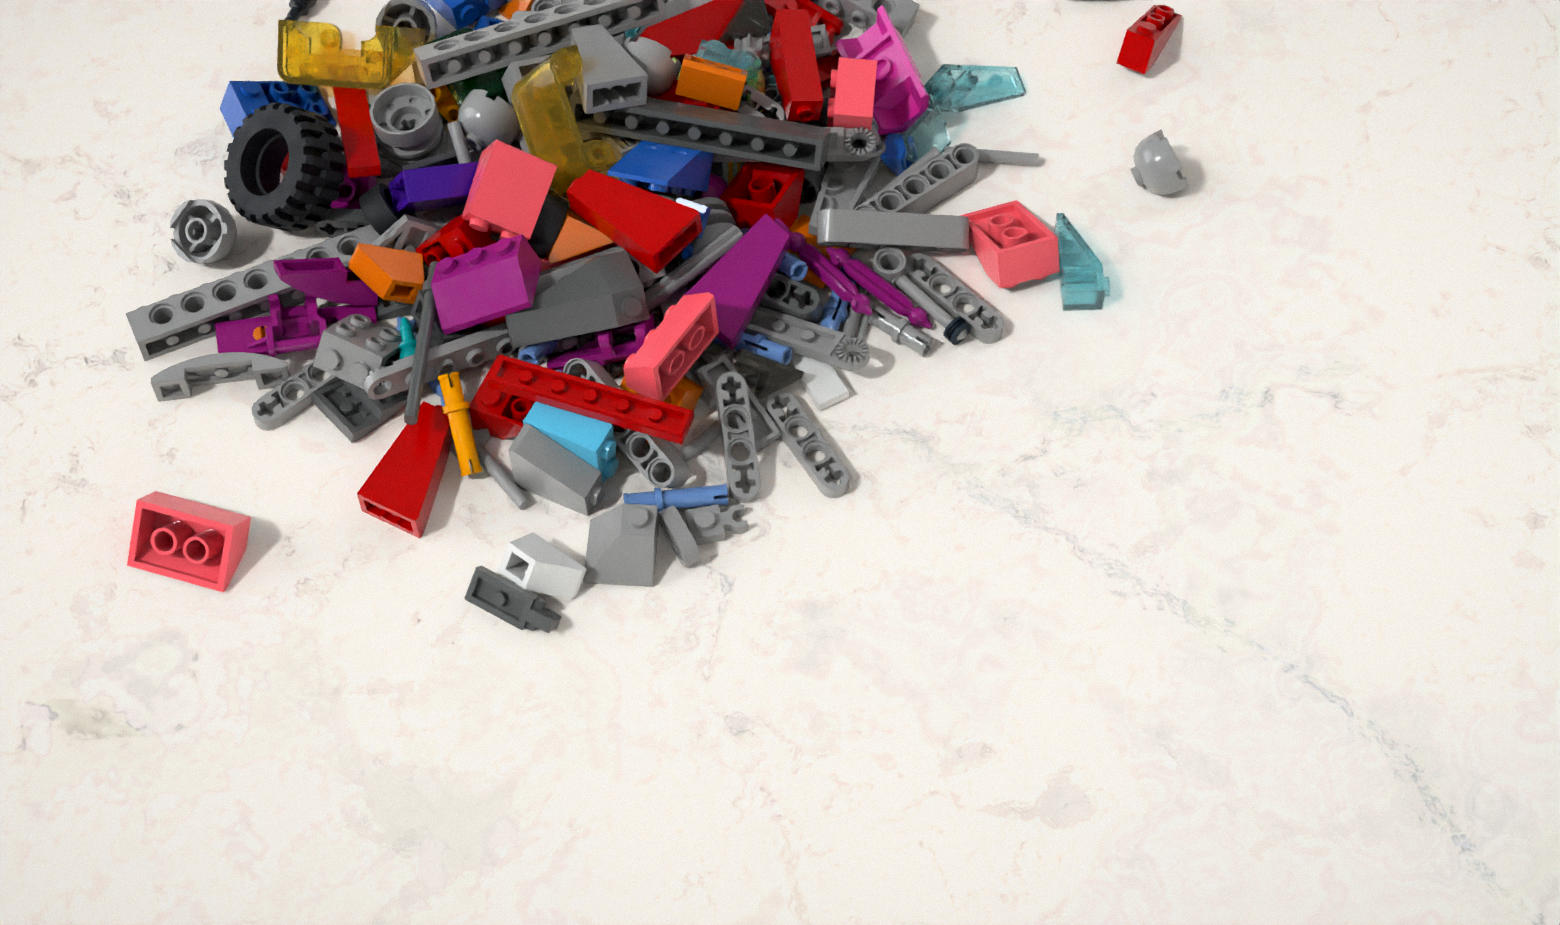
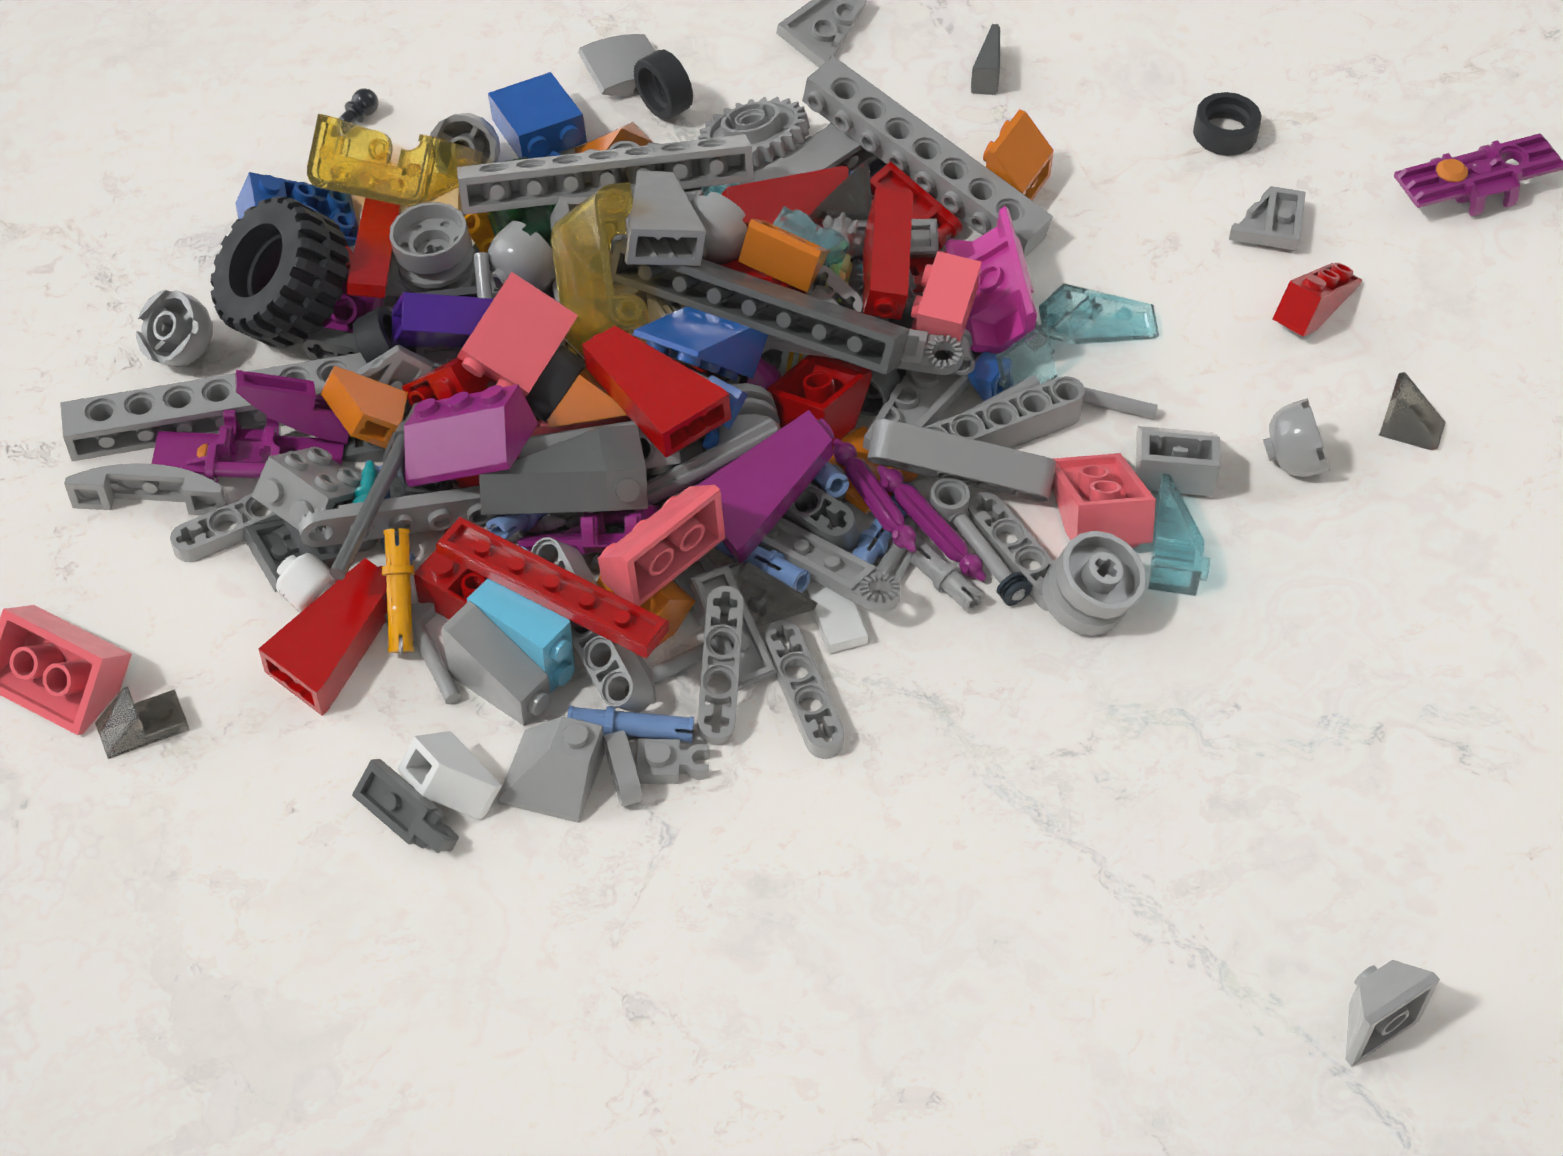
camera: 10 degrees right, 5 degrees down
(271, 573) = (134, 725): none -> clear smoke slope
(377, 429) = (303, 580): none -> white head
(1021, 315) = (1093, 583): none -> light grey wheel
(1067, 192) = (1186, 455): none -> light grey slope
(1244, 128) = (1411, 416): none -> clear smoke slope
(1315, 611) = (1386, 1005): none -> light grey slope

